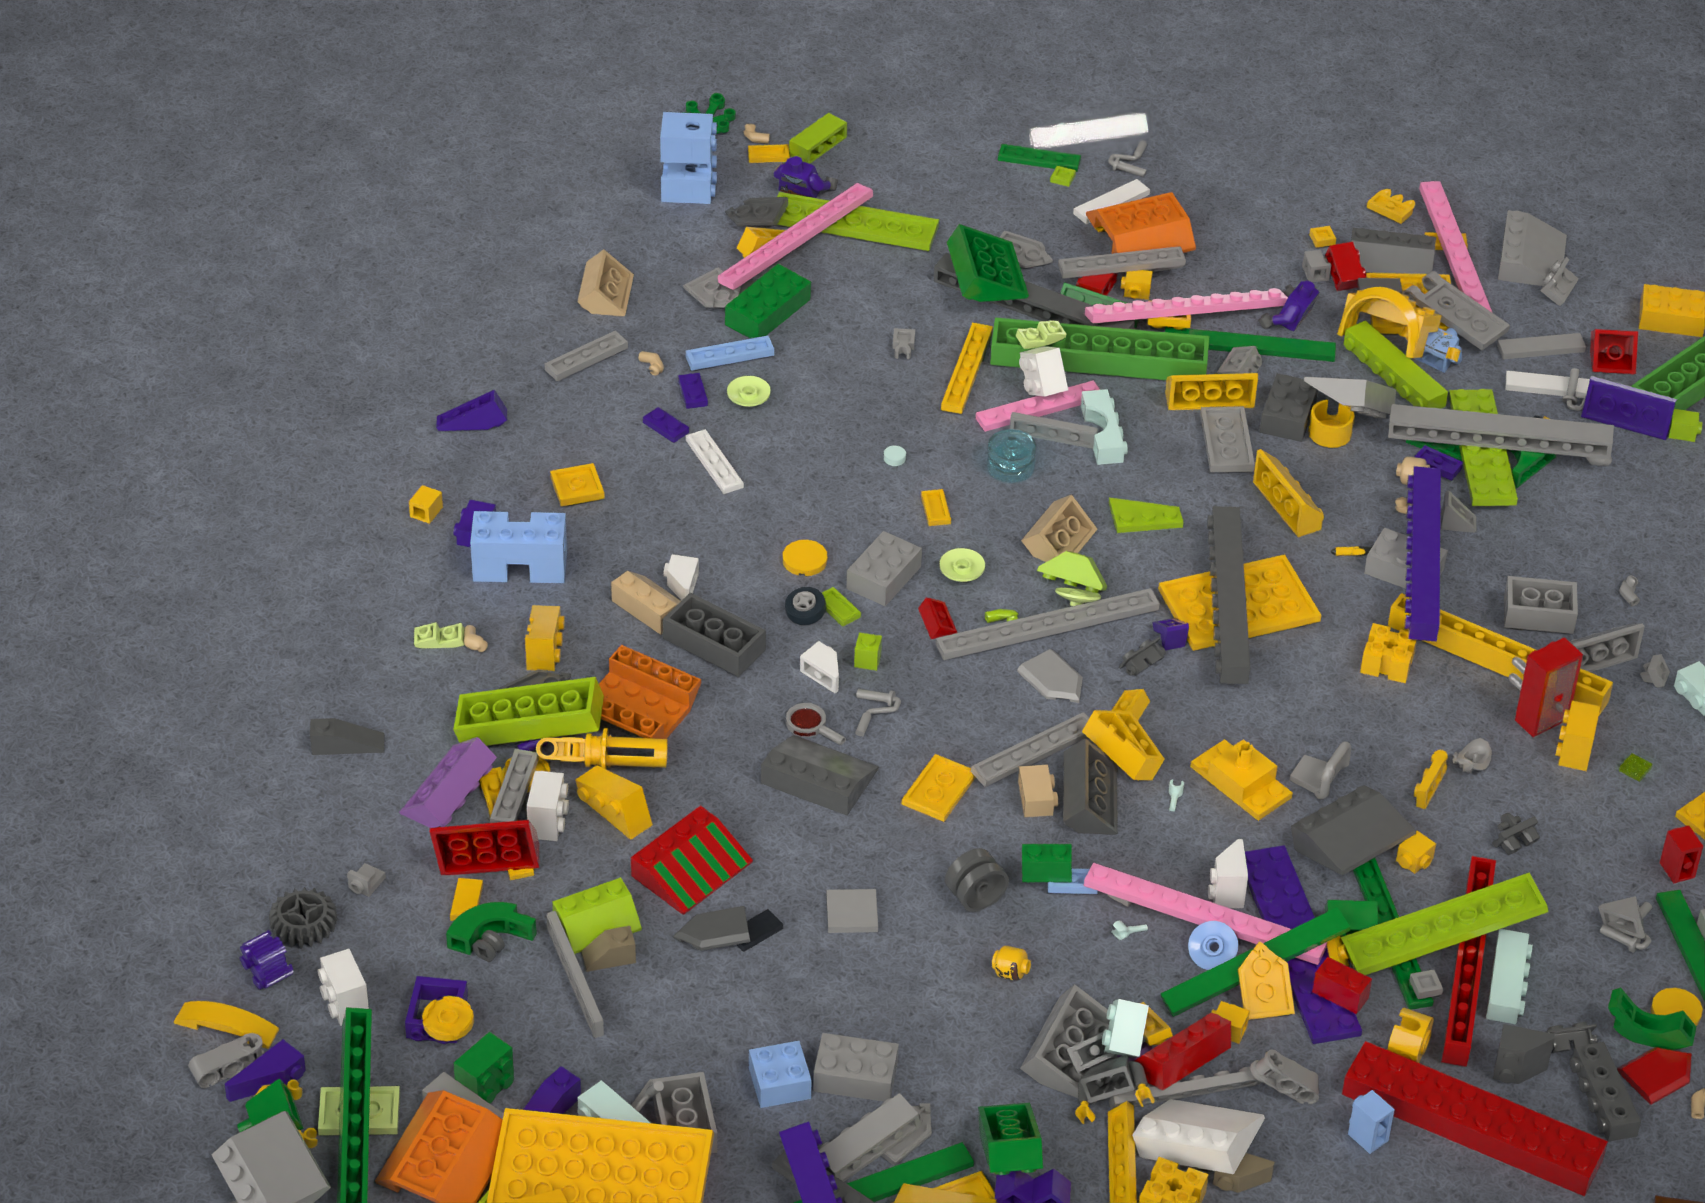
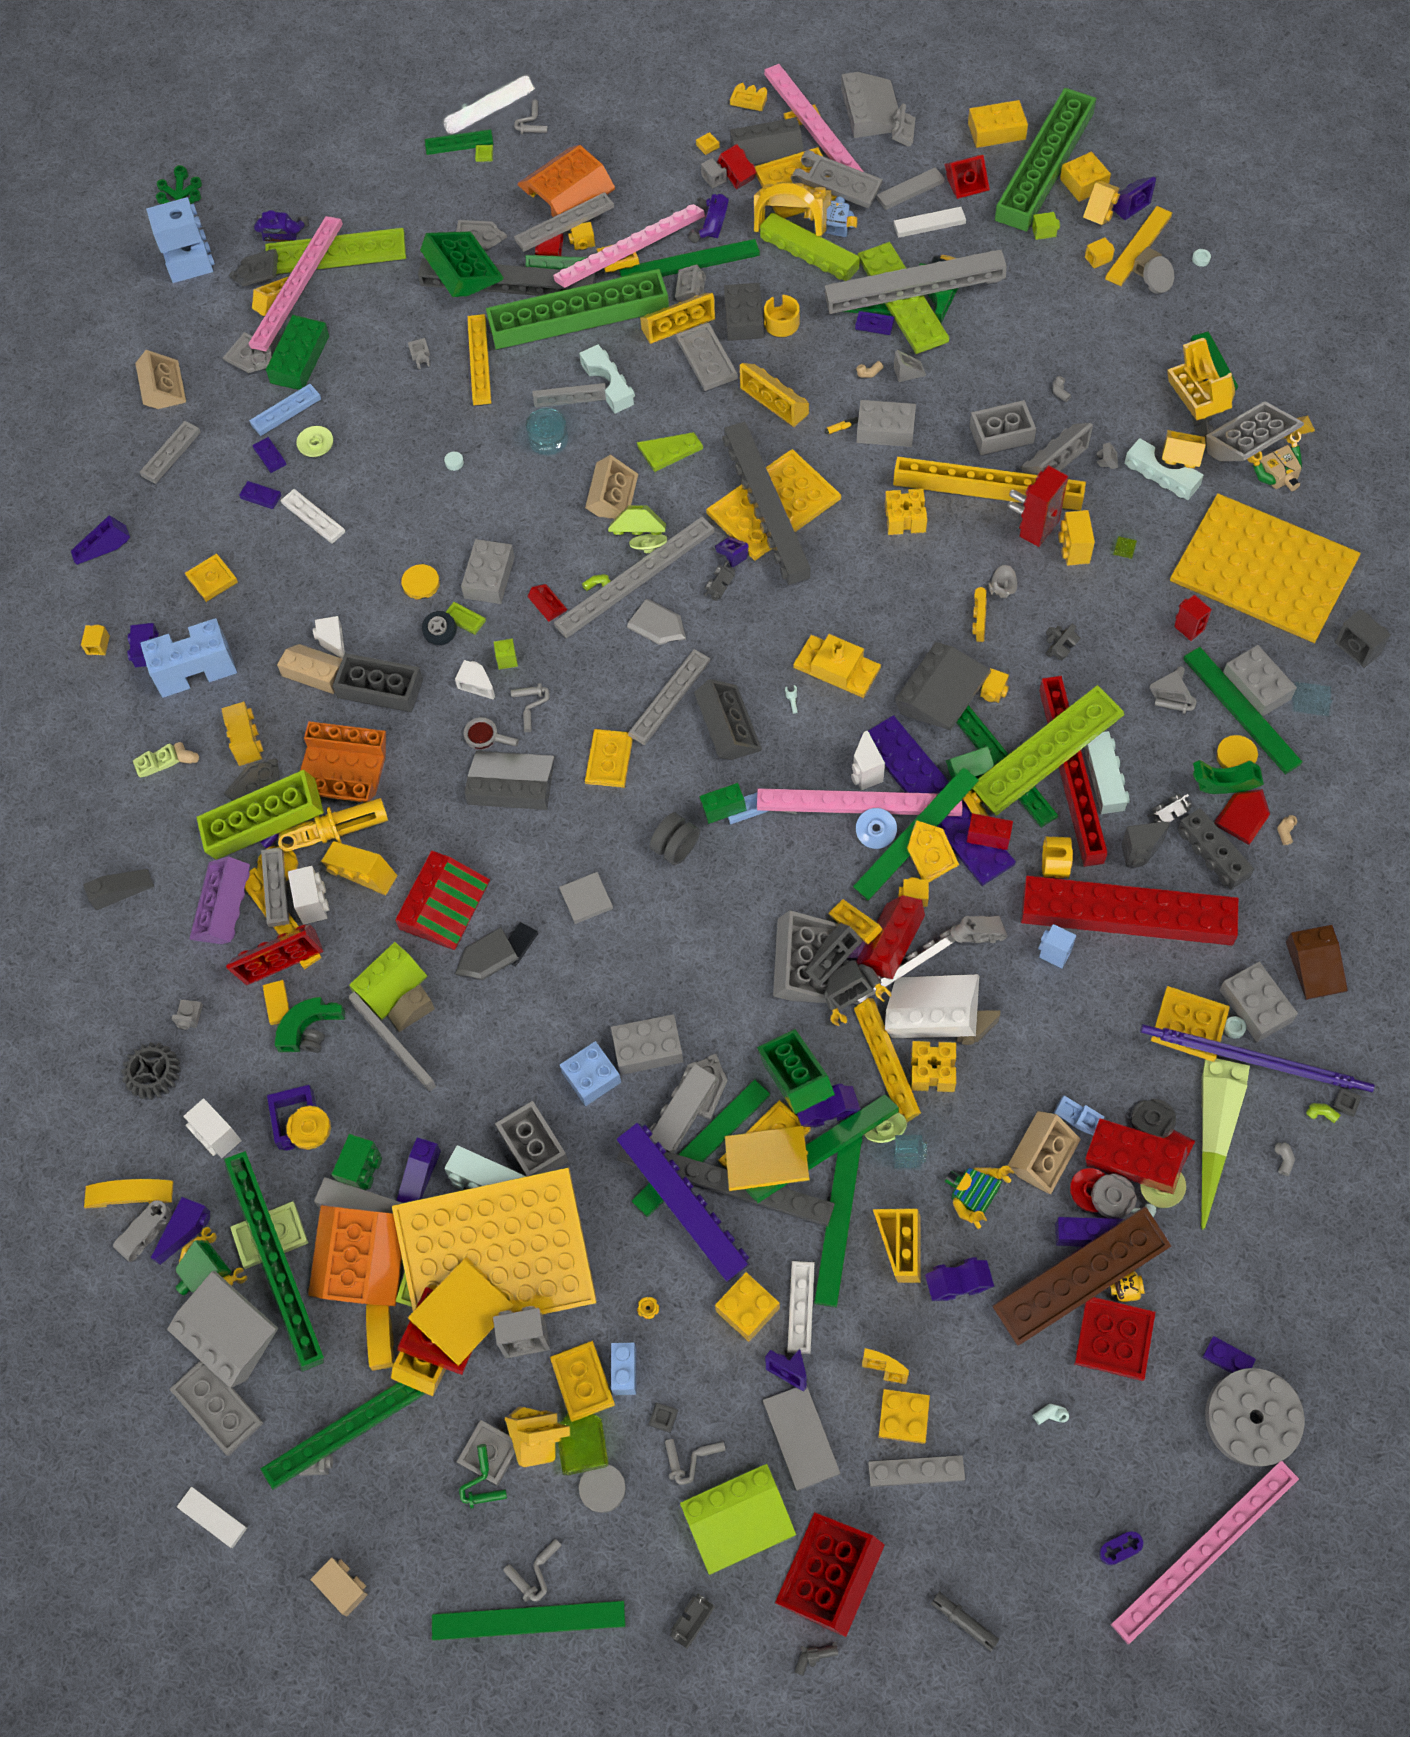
camera: 15 degrees left, 20 degrees up
(265, 960) = (138, 1126): dark purple brick -> none
(648, 1091) = (492, 1140): light grey piece -> none
(654, 360) = (225, 436): tan arm -> none
(755, 137) = (224, 196): tan arm -> none
(768, 153) = (241, 208): yellow tile -> none
(818, 138) = (276, 182): lime brick -> none
(935, 507) = (505, 498): yellow tile -> none
(962, 565) = (544, 540): yellowish green dish -> none
(1011, 963) = (729, 902): yellow head -> none
(1034, 406) = (546, 376): bright pink plate -> none
(1037, 790) = (687, 735): tan brick -> none
(1043, 371) = (543, 345): white brick -> none
(1045, 334) = (531, 312): yellowish green slope -> none
(1123, 931) = (800, 838): light aqua hand -> none
(1124, 742) = (739, 668): yellow wedge -> none
(1125, 1028) = (847, 940): light aqua brick -> none
(1129, 192) = (532, 162): white tile -> none
(1133, 701) = (726, 632): yellow slope -> none
(1318, 774) = (895, 640): light grey piece -> none
(1360, 395) = (794, 287): light grey slope -> none
(1392, 283) = (770, 176): dark grey tile -> none
(1406, 467) = (860, 338): tan head -> none
(1424, 554) = (903, 416): dark purple brick -> none
(1426, 984) = (1049, 804): light grey plate -> none
(1570, 398) = (950, 225): light grey piece -> none
(1628, 408) = (1000, 225): dark purple tile -> none

